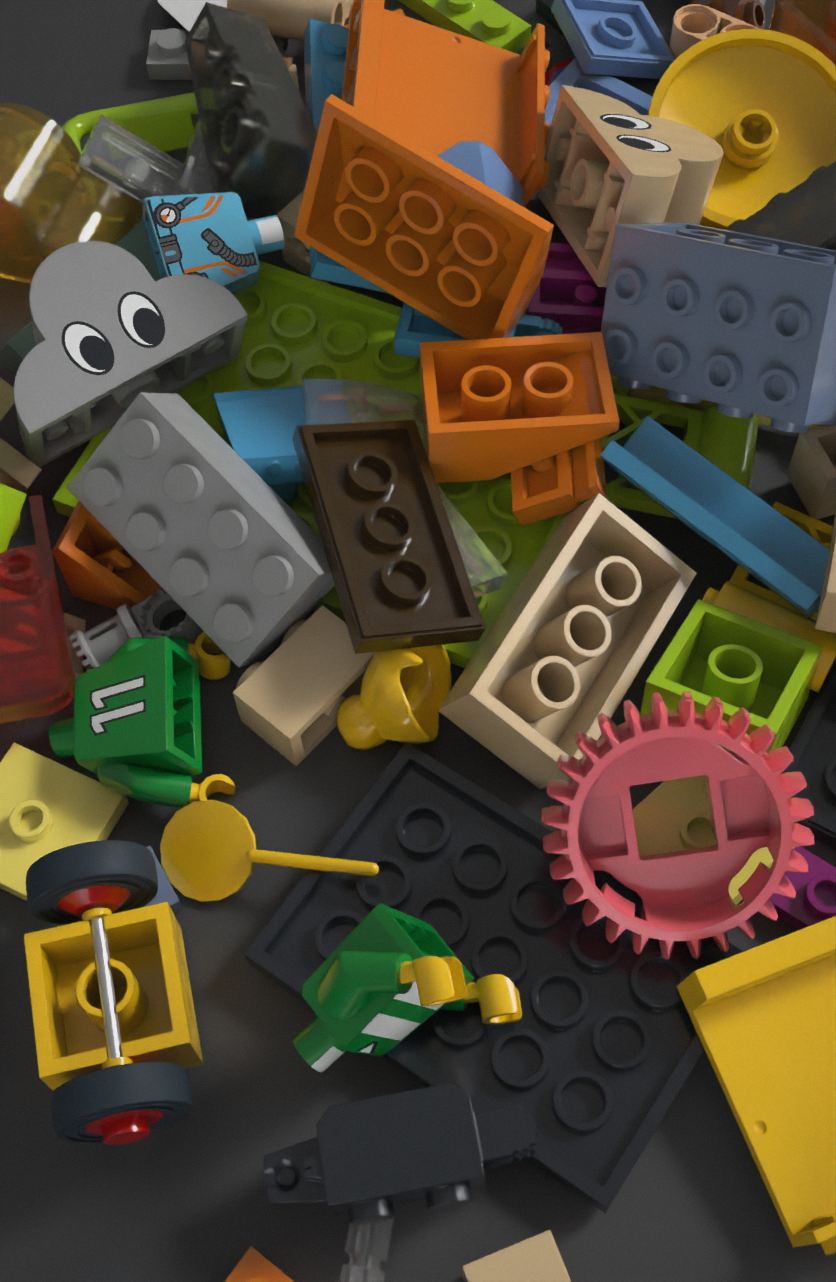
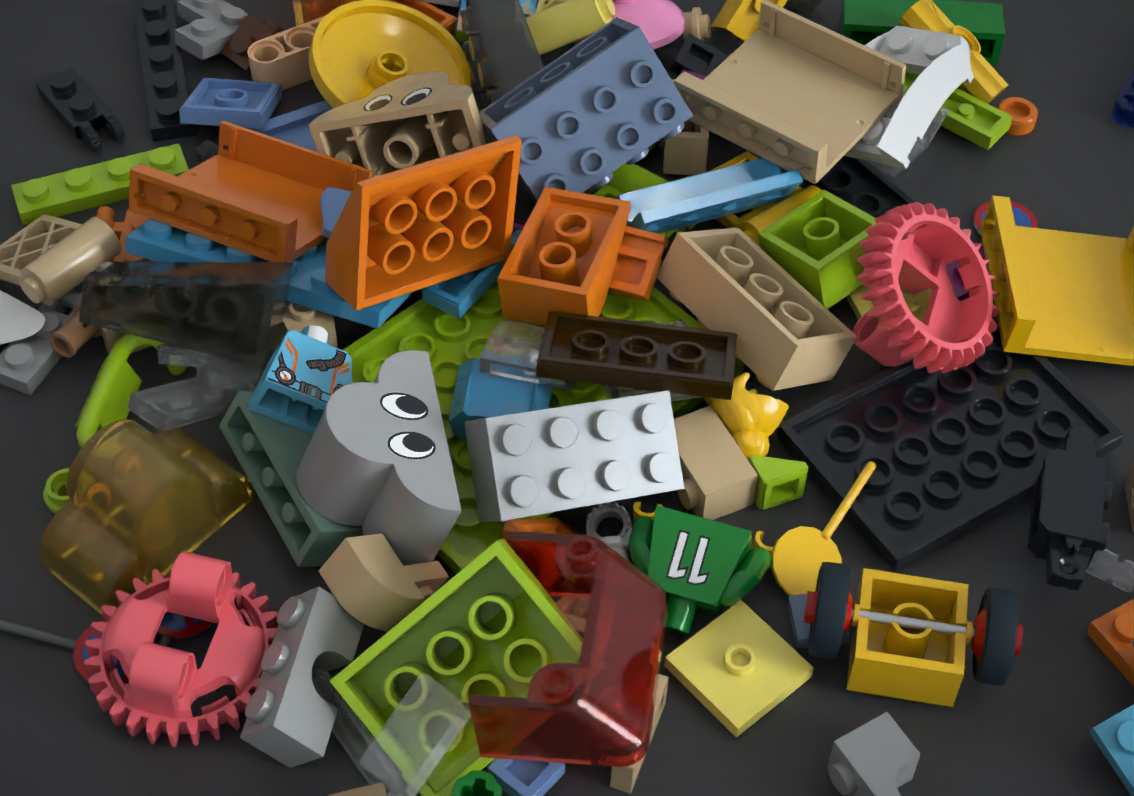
camera: 70 degrees left, 10 degrees down
(311, 770) = (778, 480): none -> lime slope
(387, 984) = (976, 458): green torso -> none

